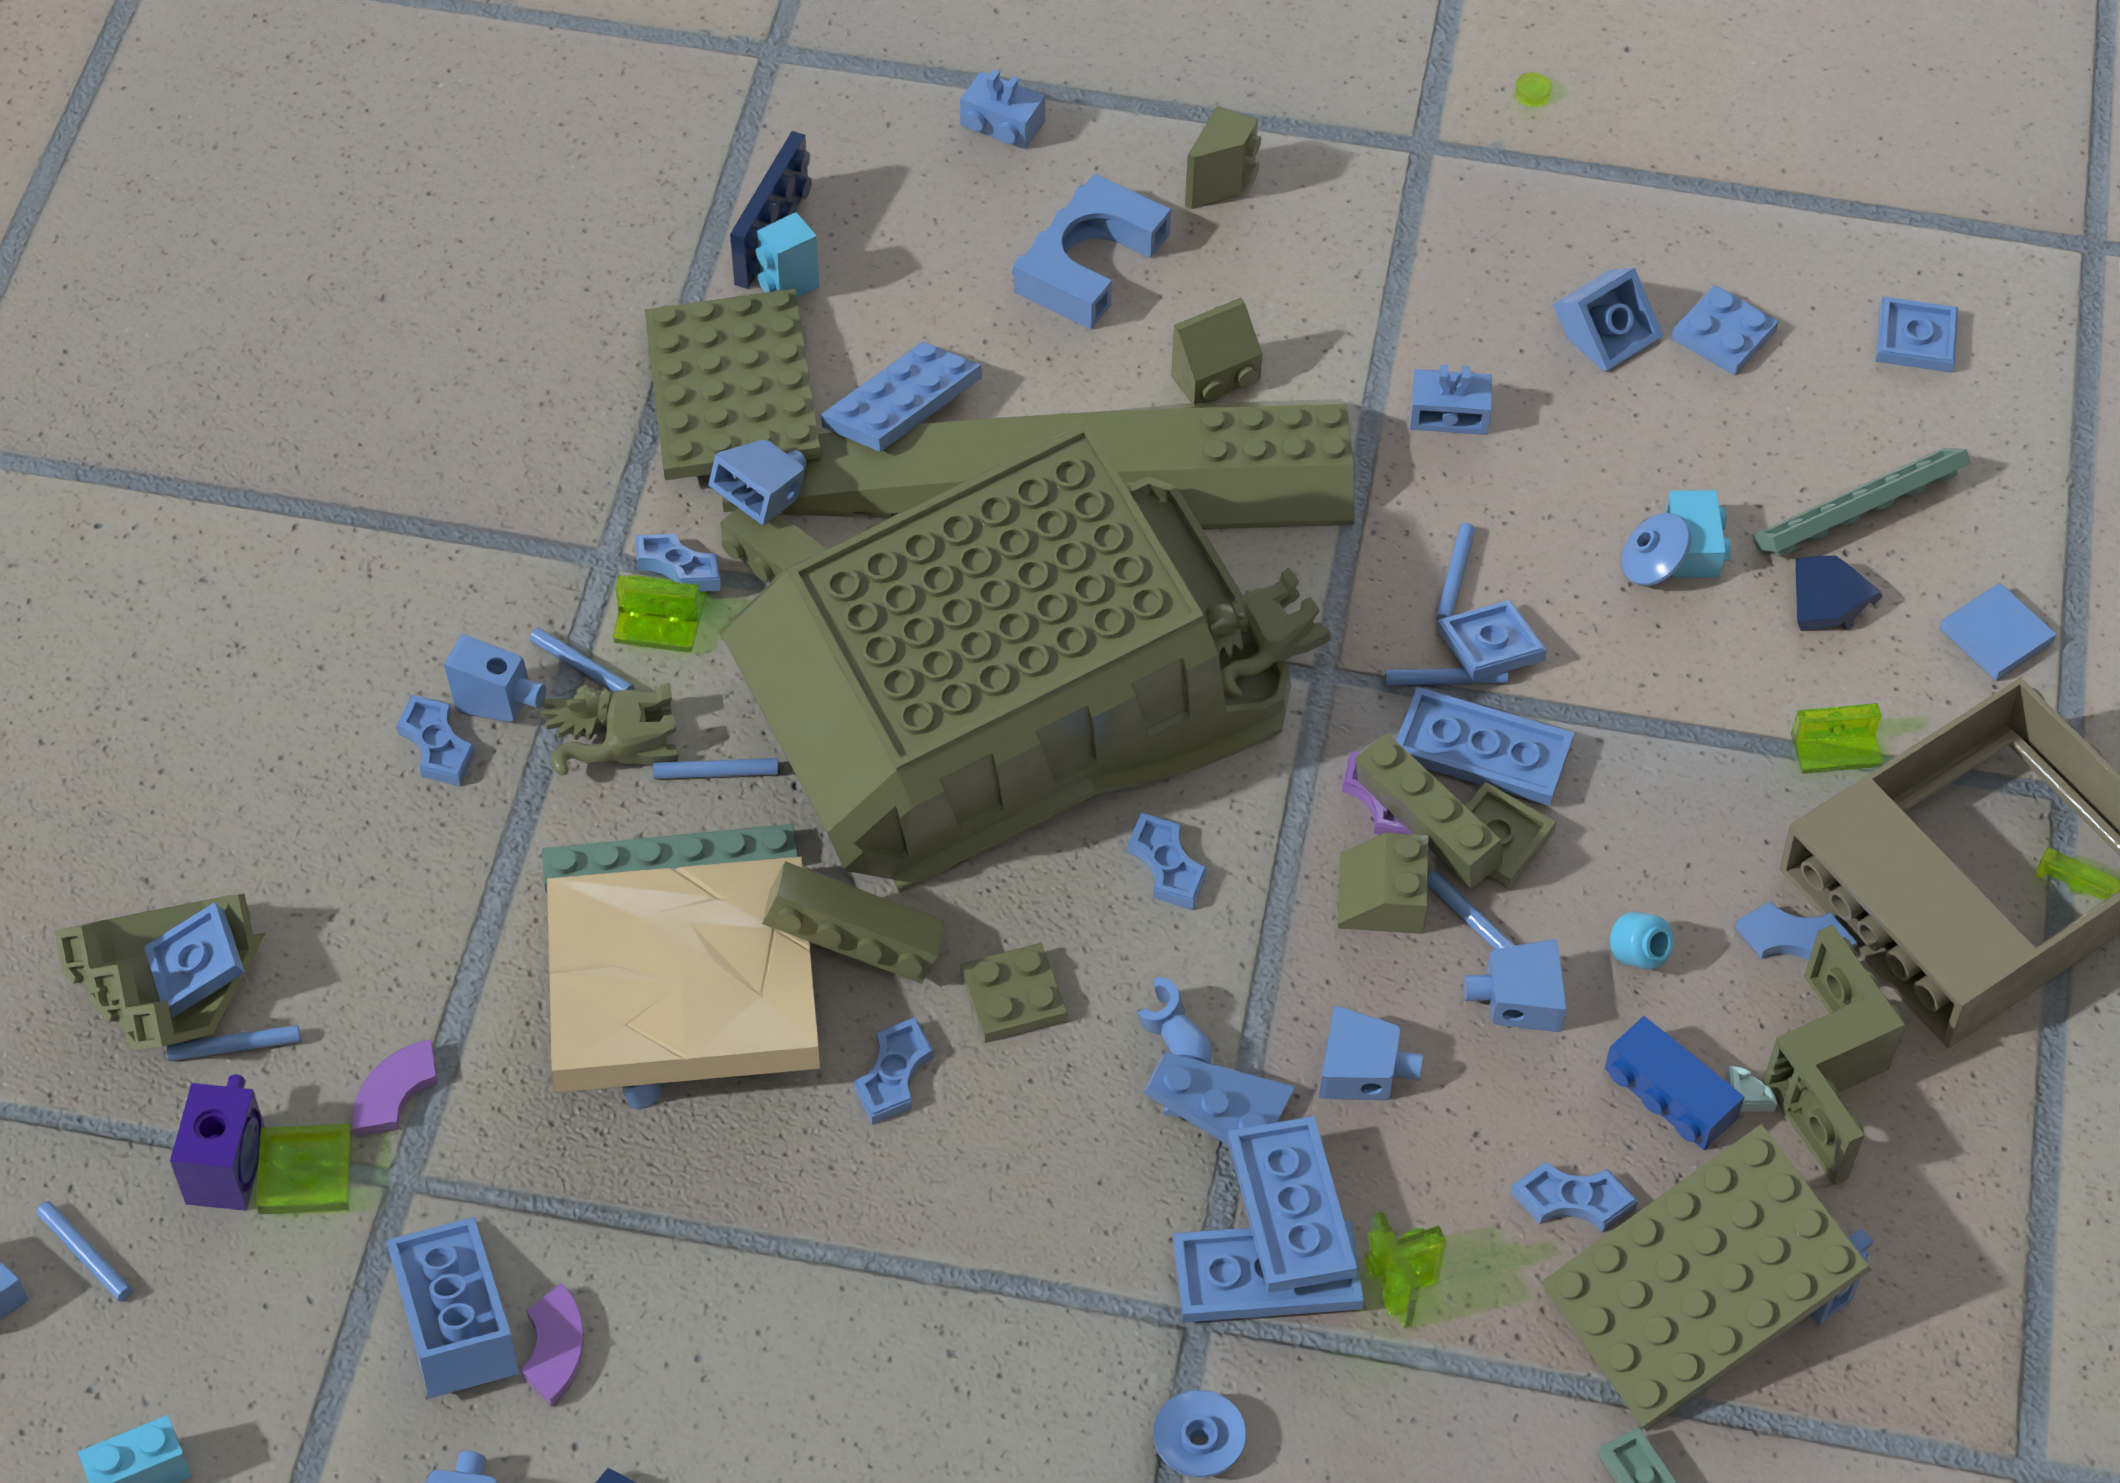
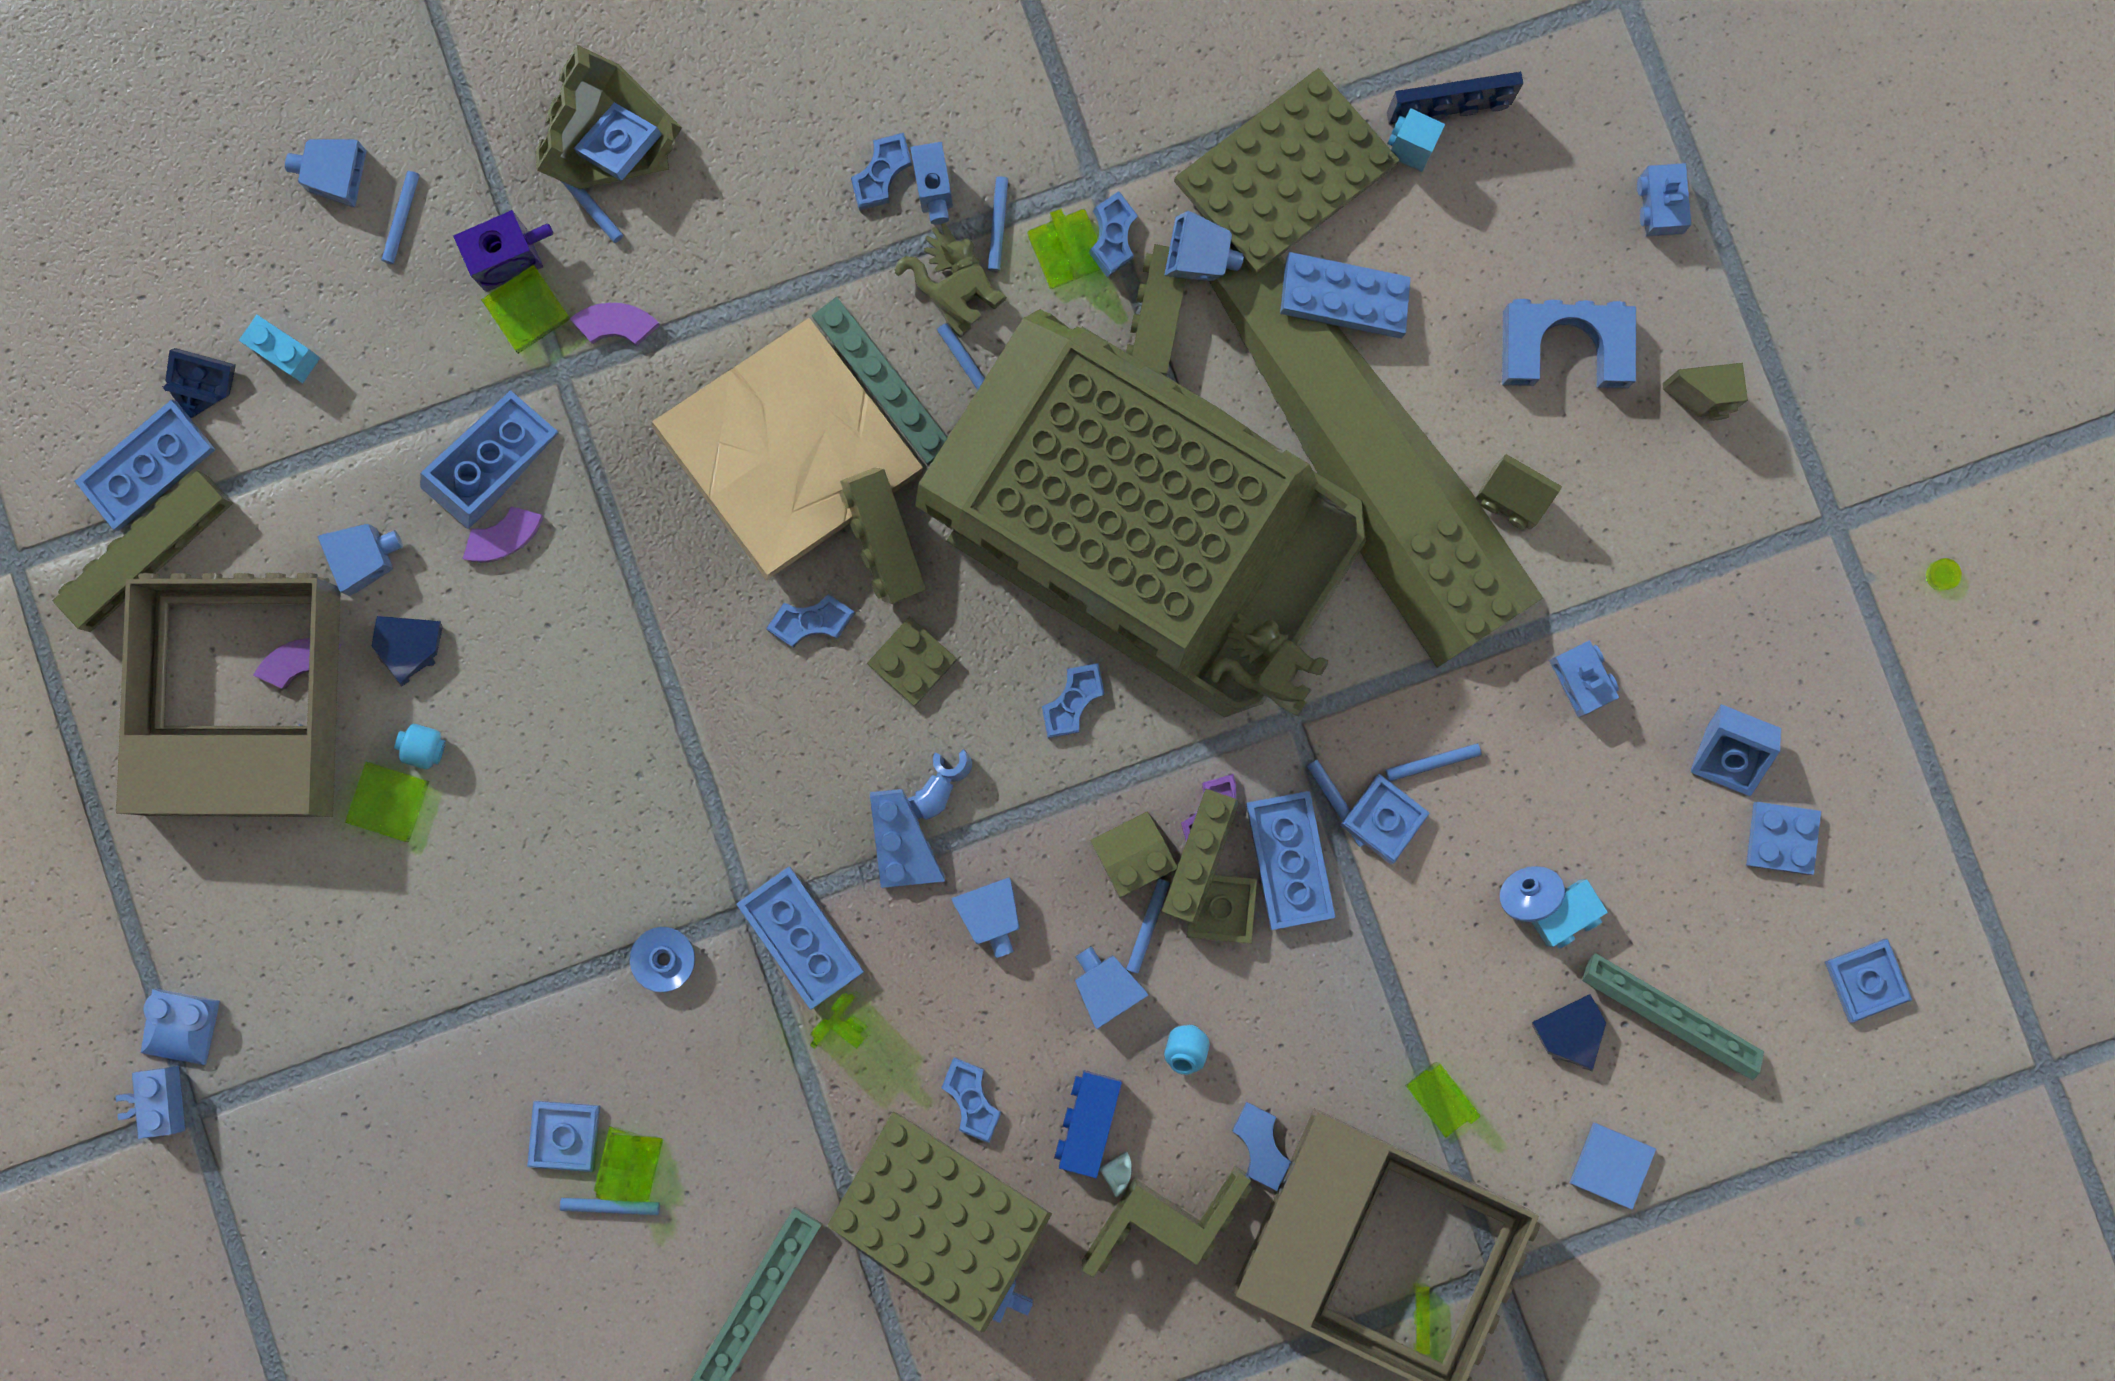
camera: 60 degrees right, 30 degrees up
(1291, 1204) = (845, 930): medium blue plate -> none

